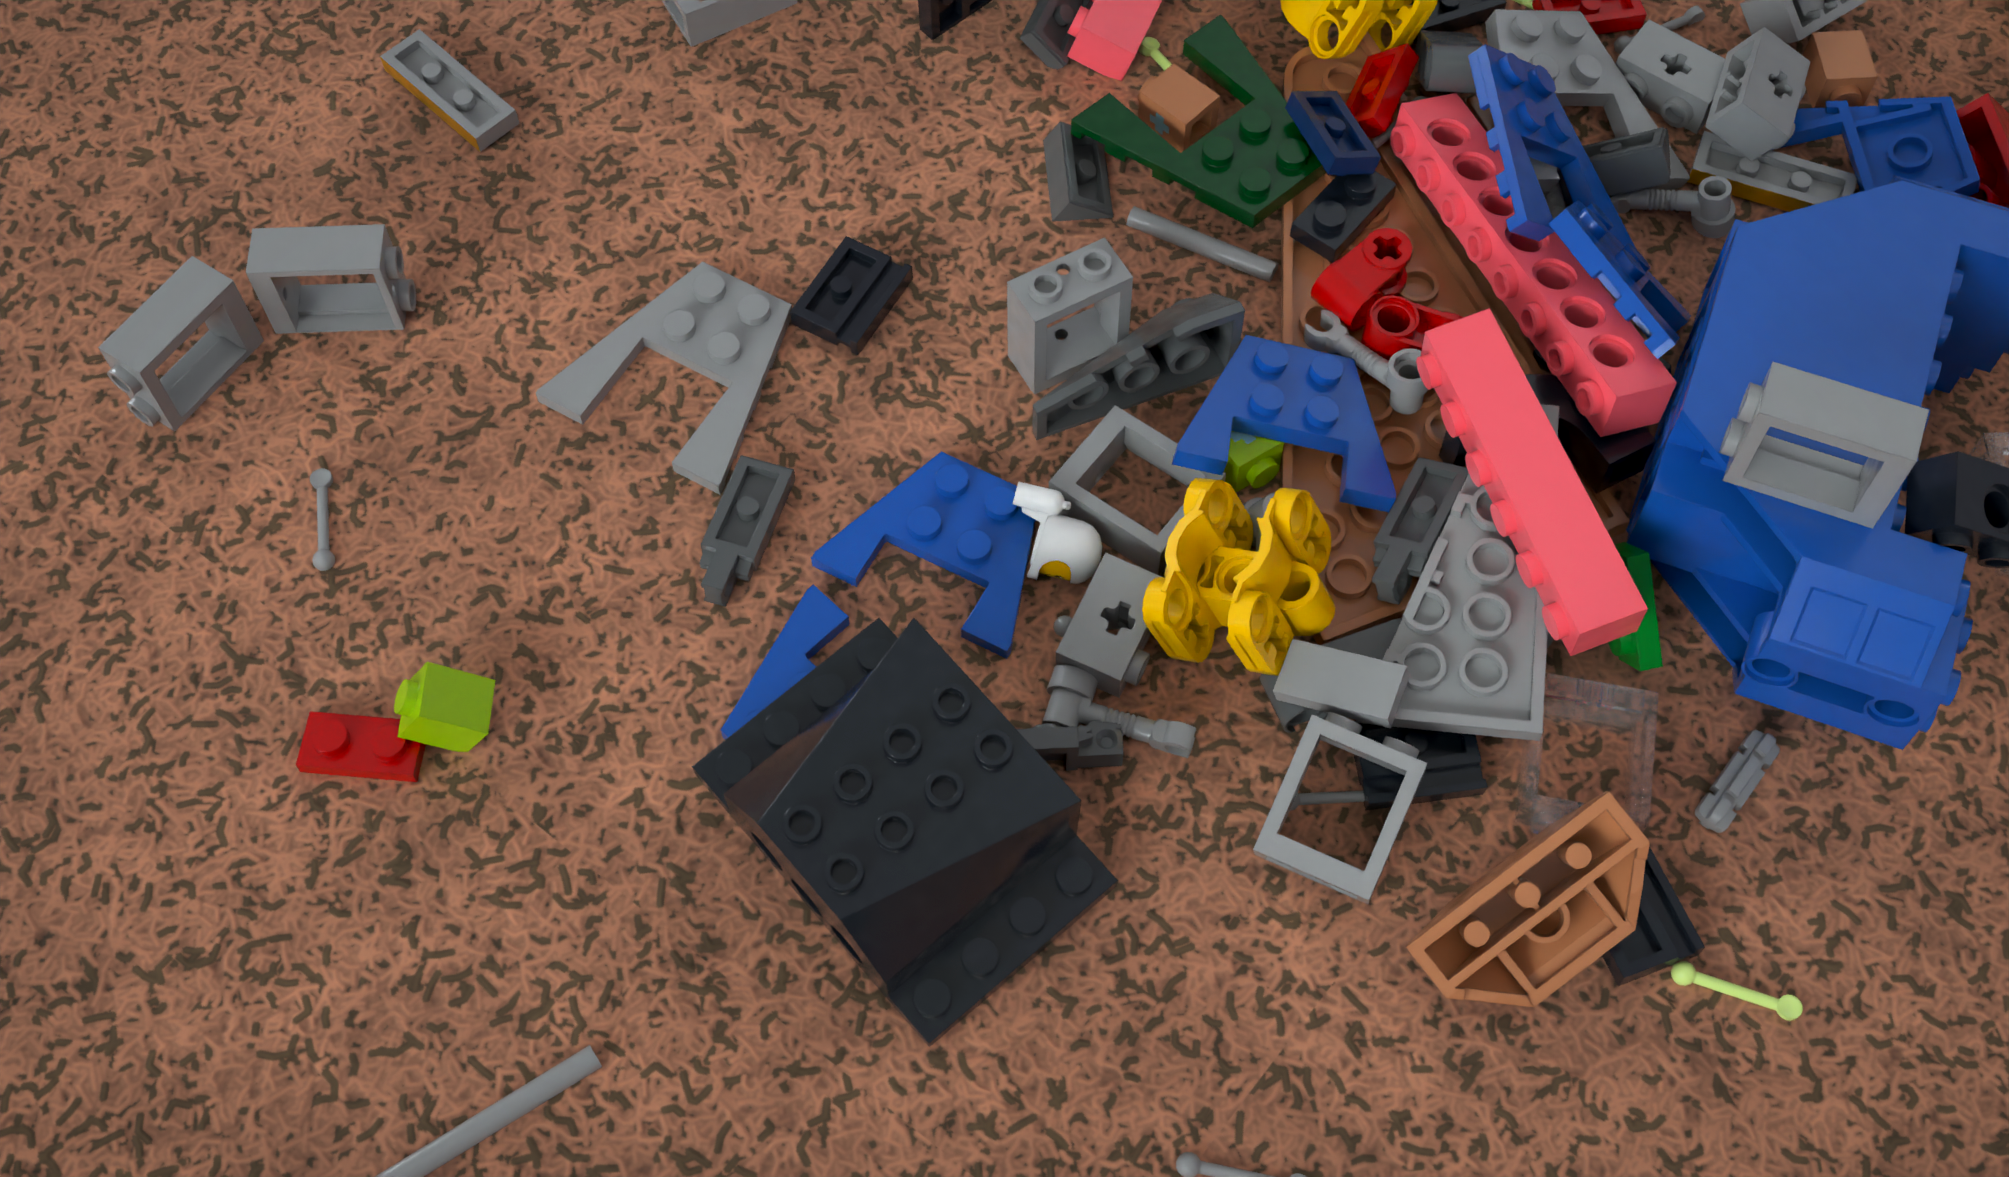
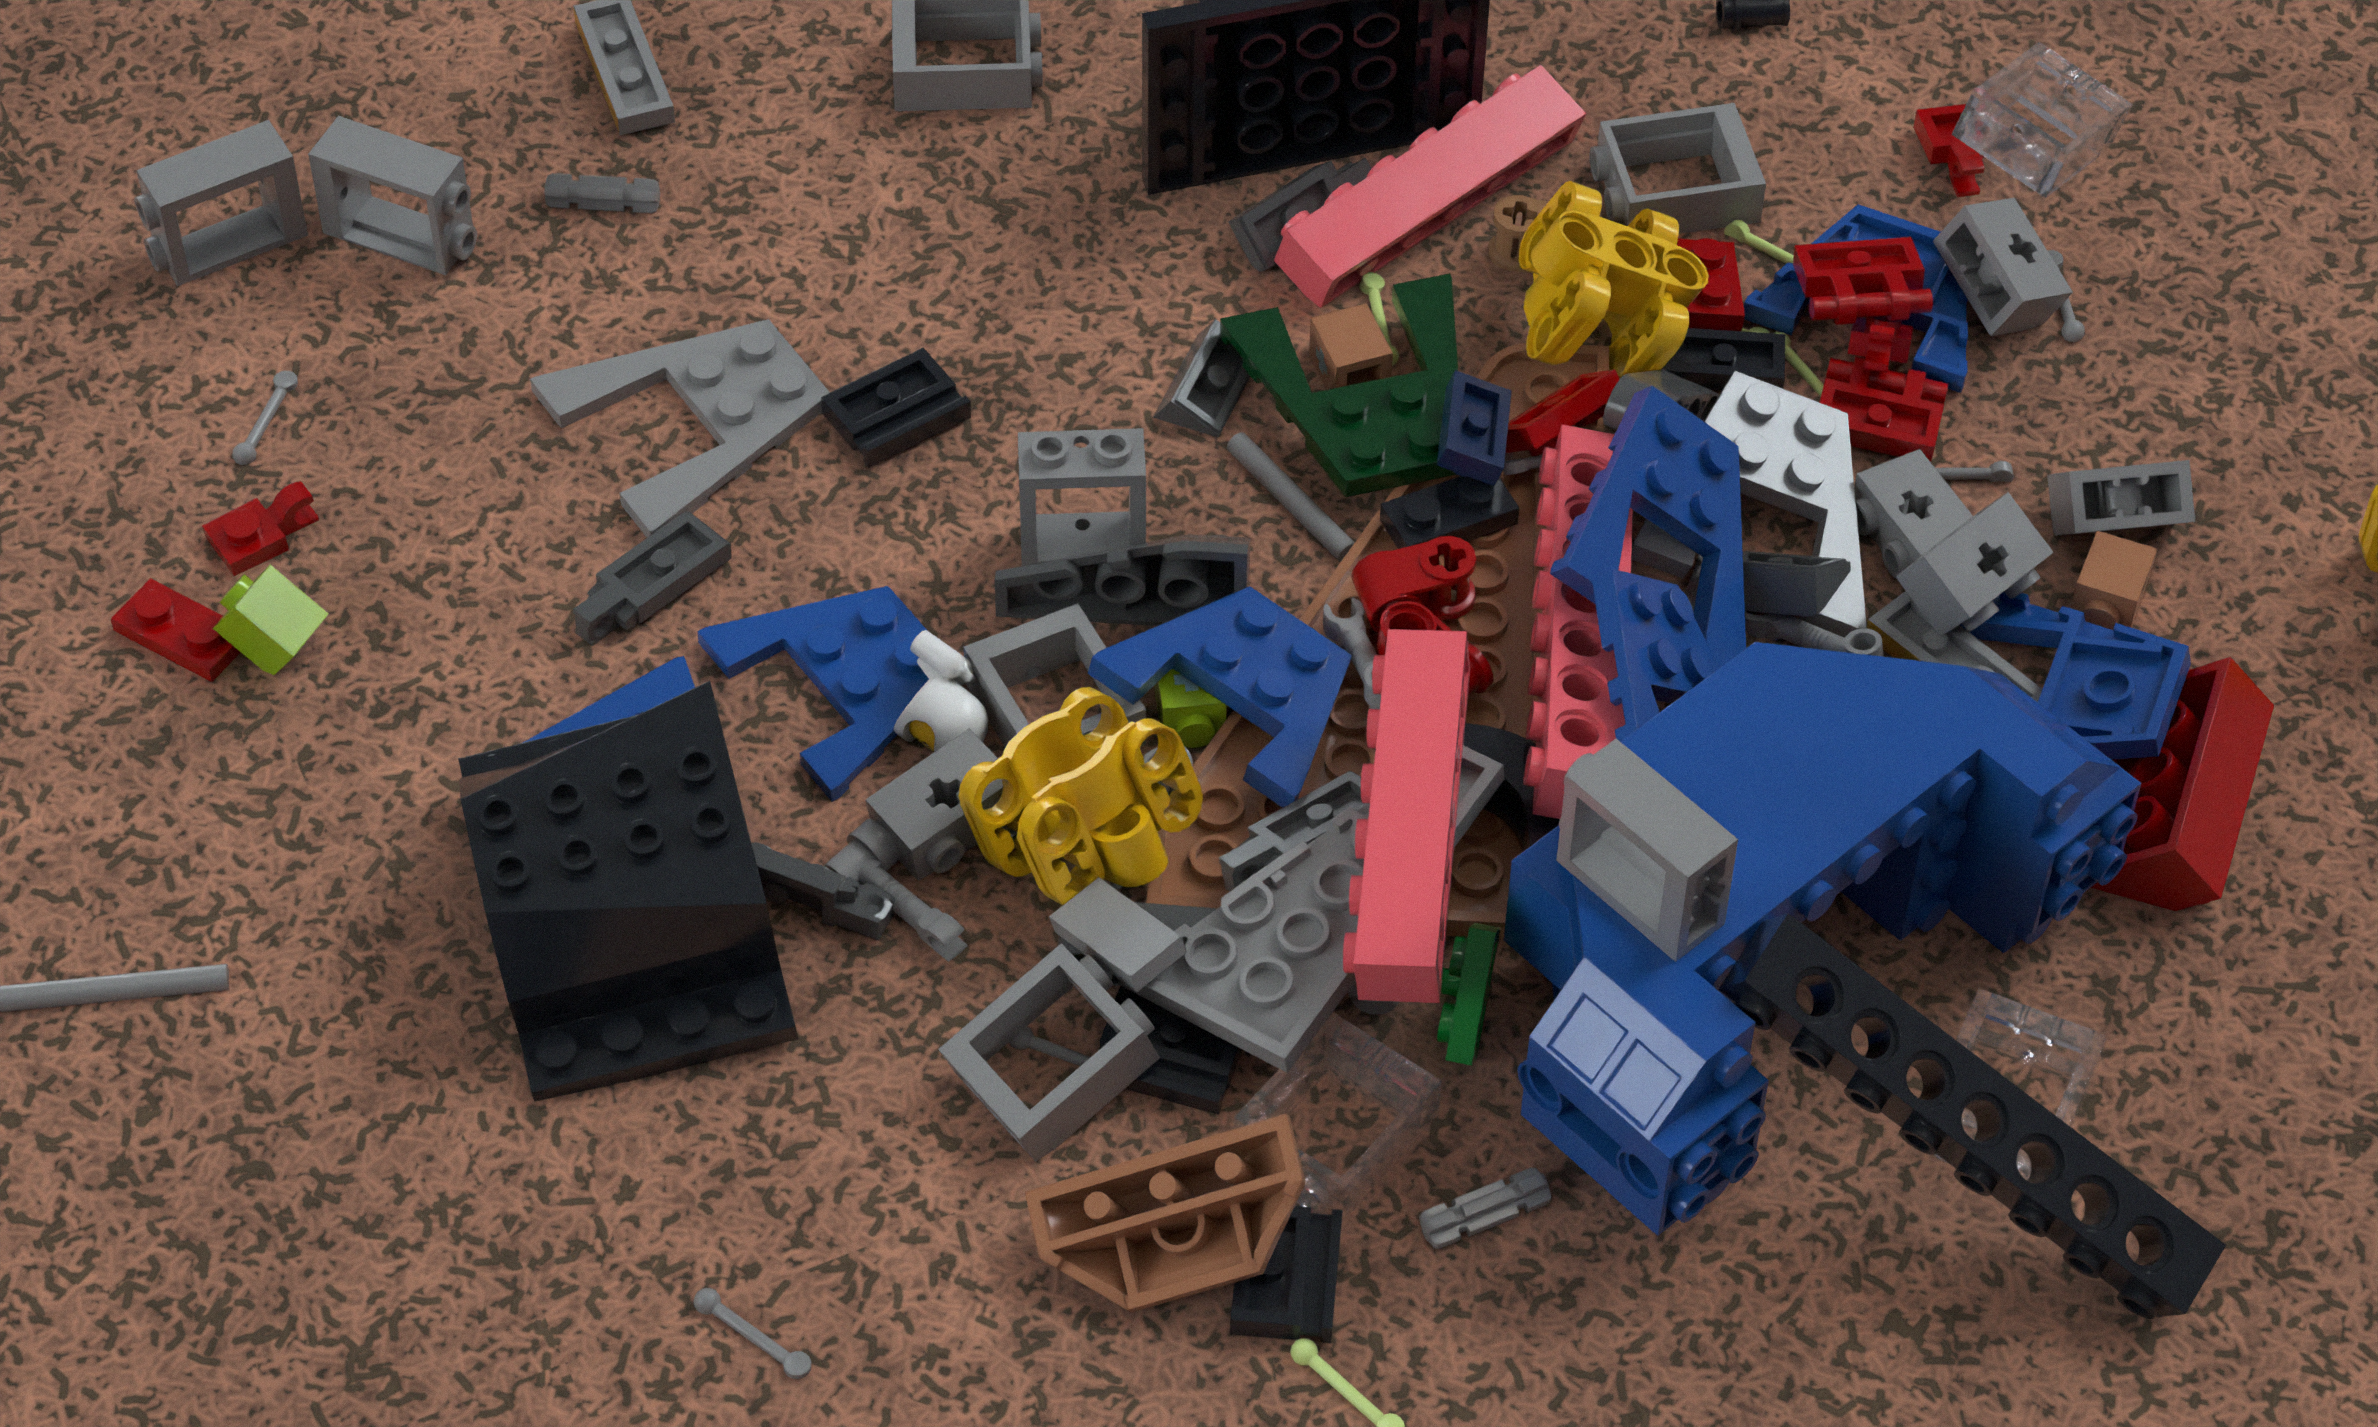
camera: 25 degrees right, 10 degrees down
(378, 631) = (259, 534): none -> red plate
(496, 207) = (602, 193): none -> light grey axle

